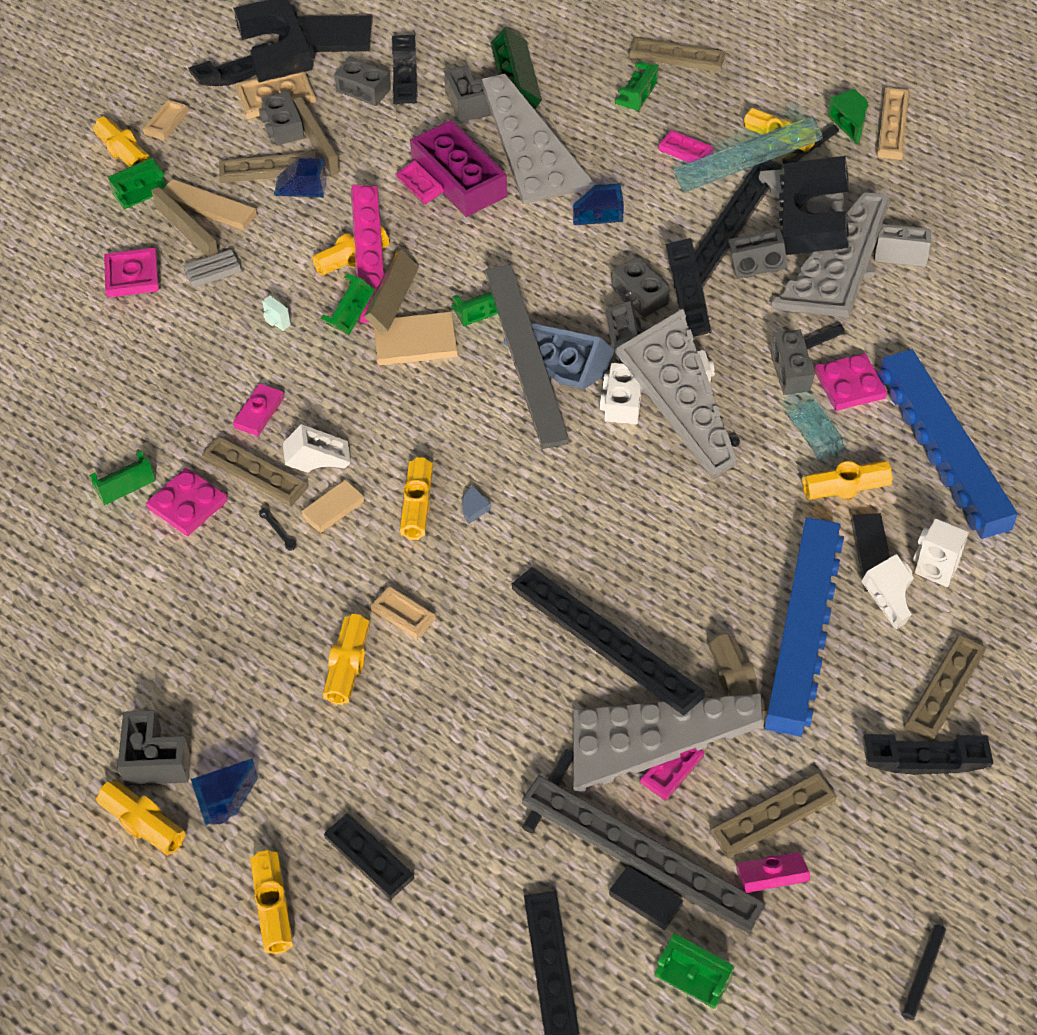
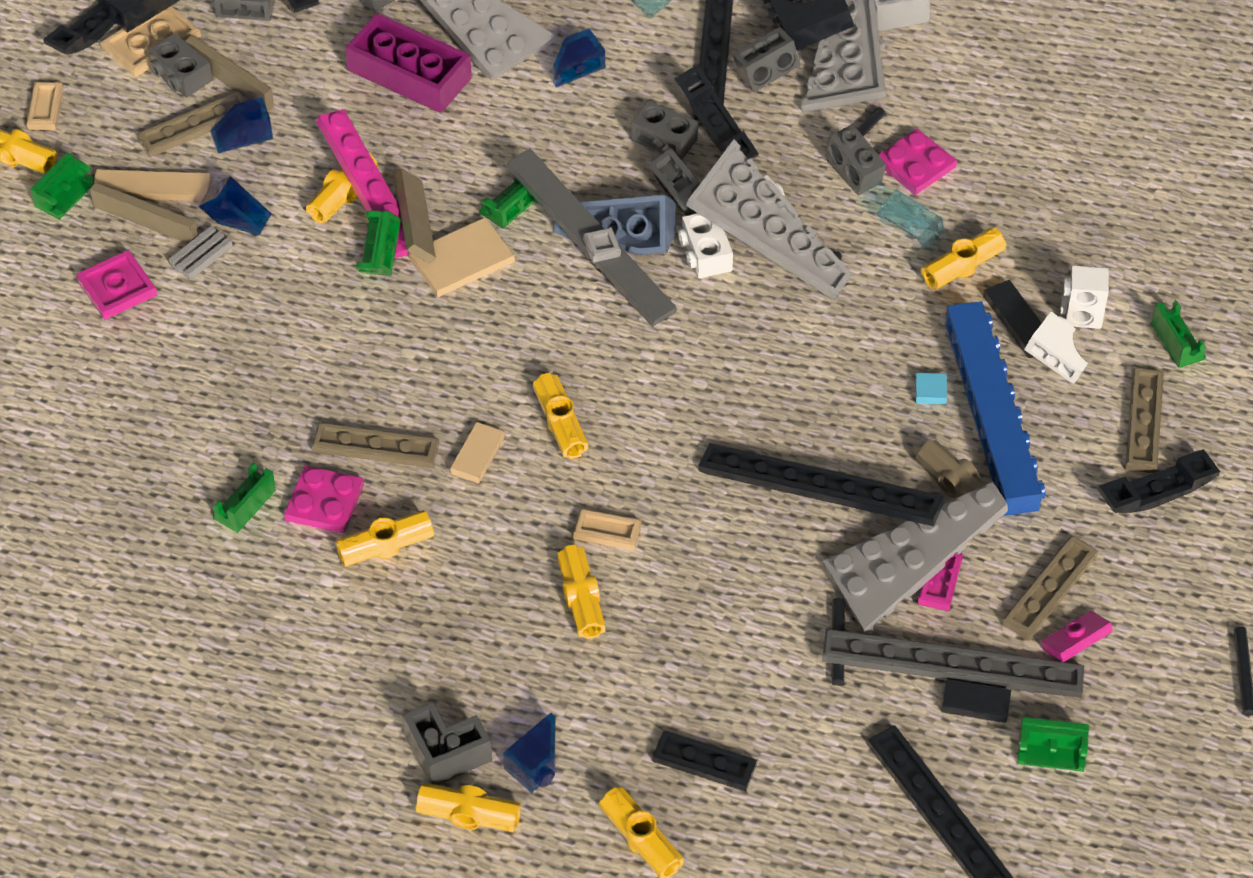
camera: 25 degrees left, 0 degrees up
(211, 551) = (397, 534): none -> yellow piece
(257, 241) = (234, 207): none -> clear blue slope
(258, 409) = (342, 383): dark pink plate -> none
(276, 313) = (303, 277): light aqua plate -> none
(290, 544) = (455, 504): black hinge -> none
(314, 449) = (428, 402): white arch -> none
(419, 182) = (372, 91): dark pink plate -> none
(474, 505) = (618, 403): sand blue tile -> none
(529, 364) = (602, 245): none -> light grey tile
(758, 587) = (931, 388): none -> medium azure tile
(947, 445) = (1037, 191): blue brick -> none
(1016, 618) = (1177, 336): none -> green hinge

